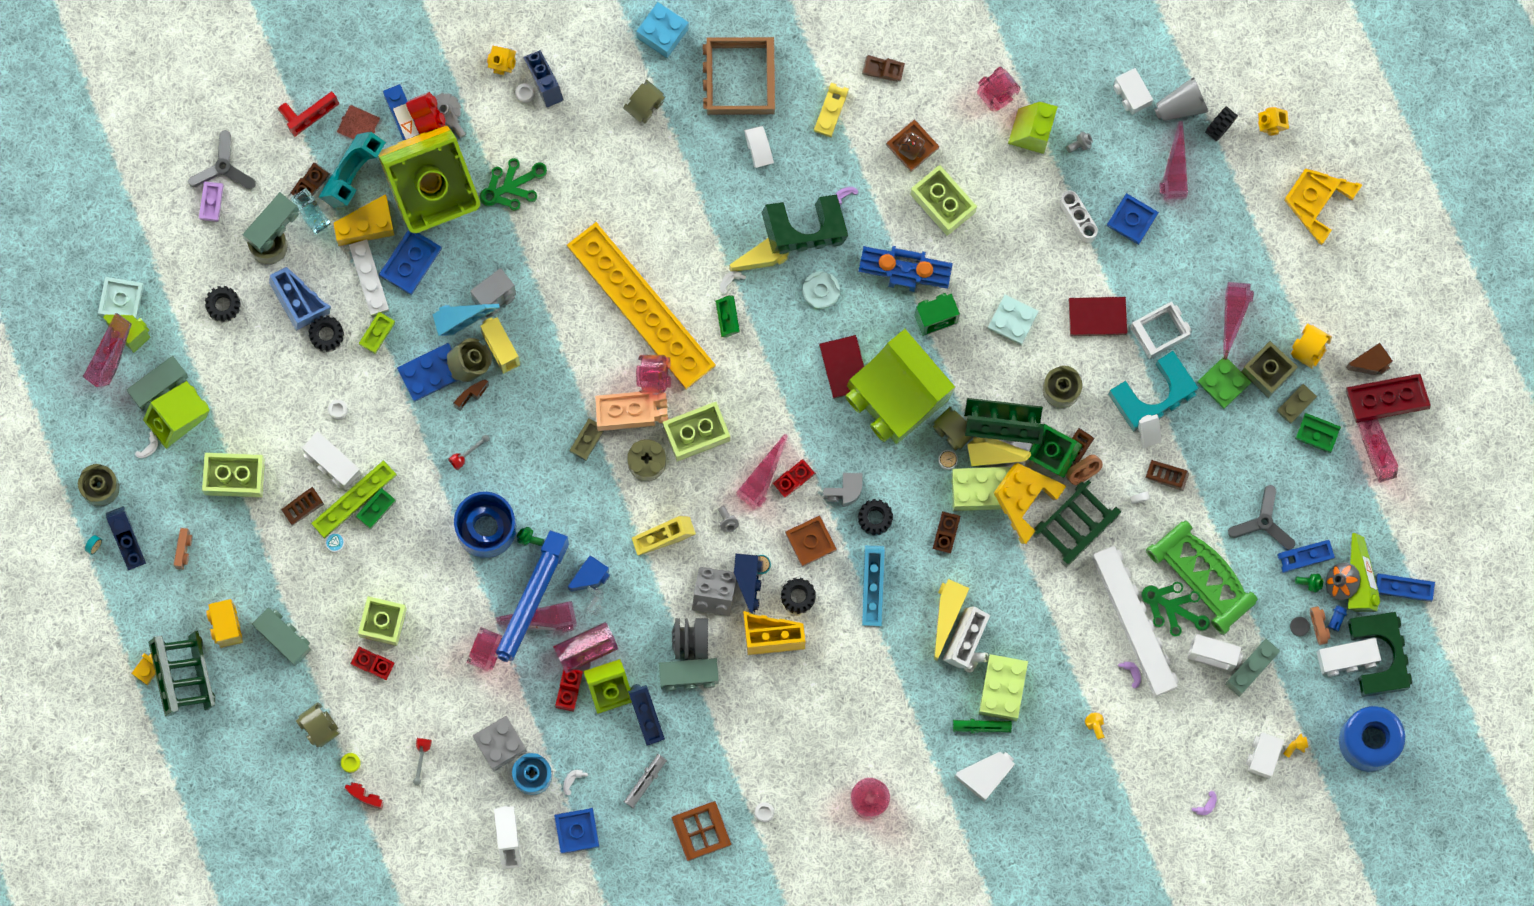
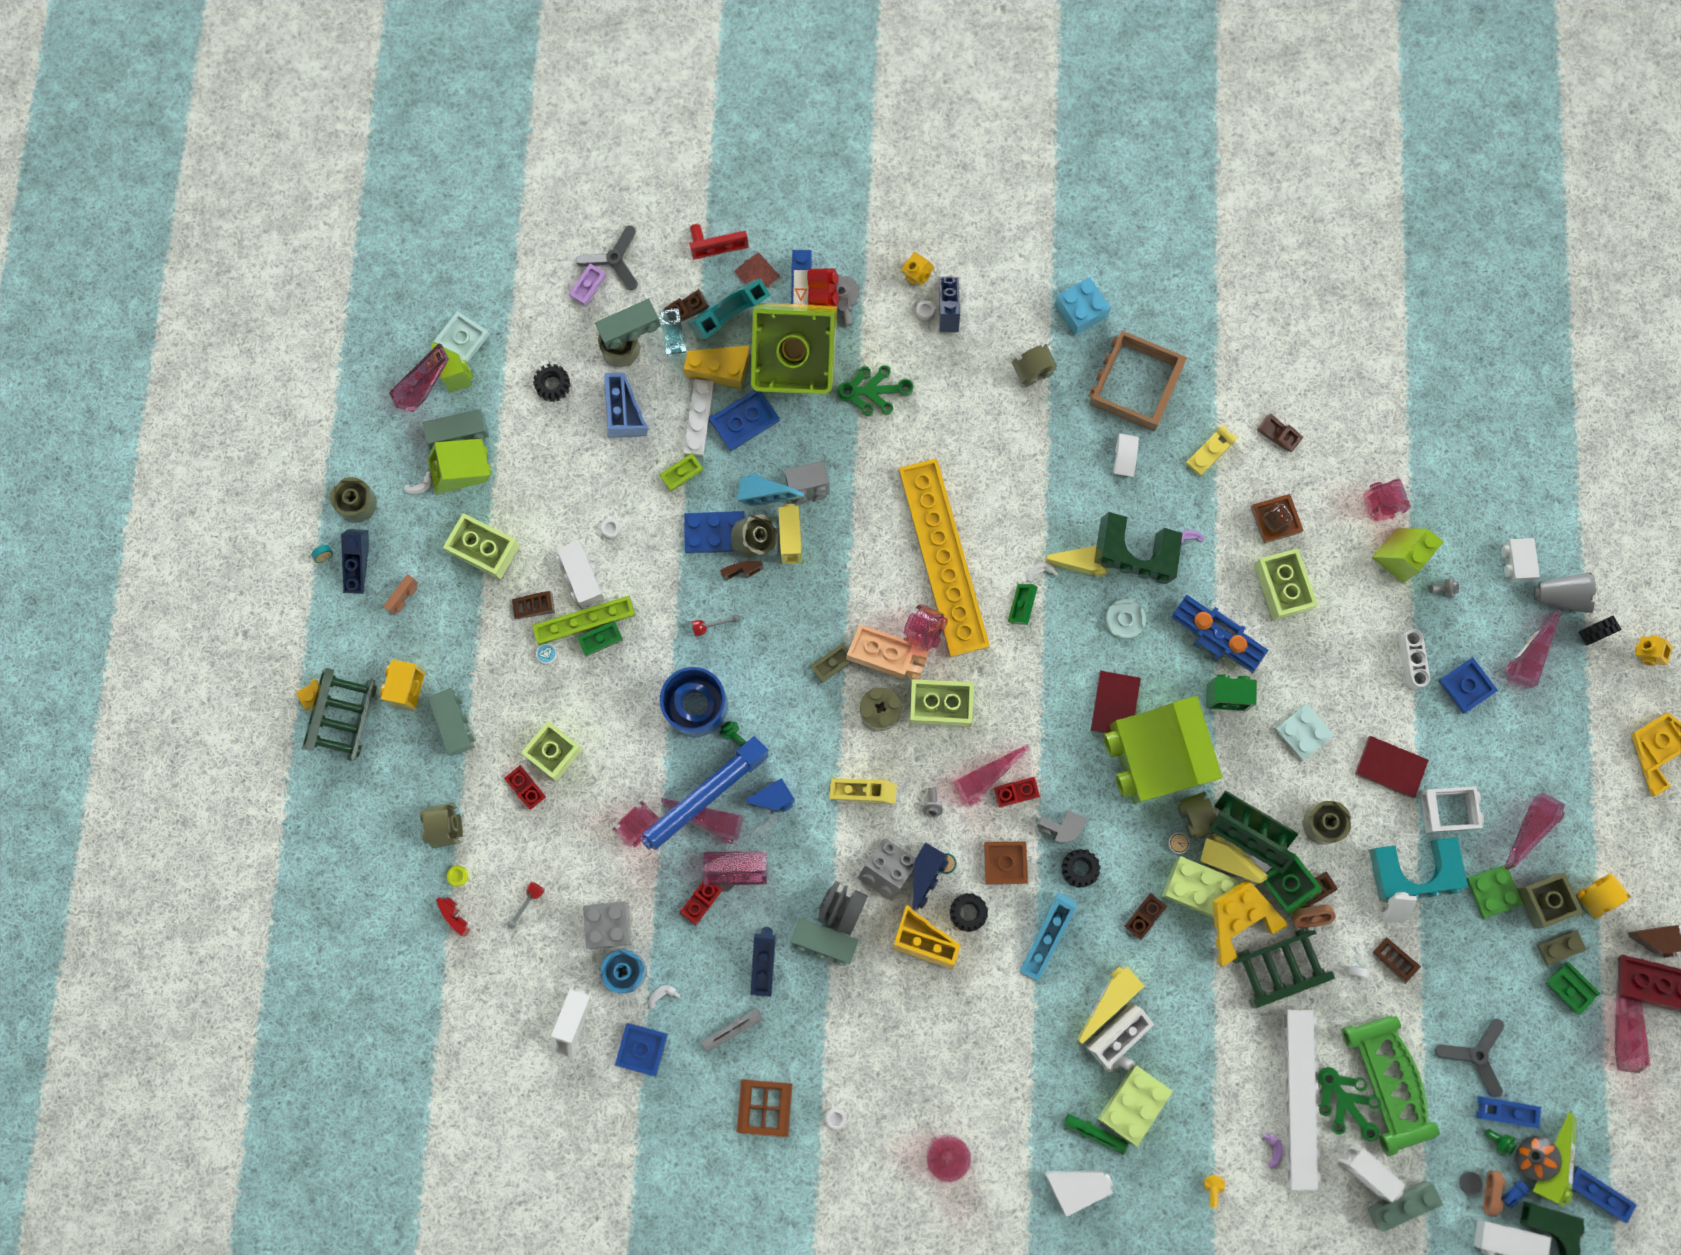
camera: 30 degrees right, 0 degrees up
(328, 344) = (626, 443): black tyre -> none
(608, 686) = (739, 916): lime slope -> none

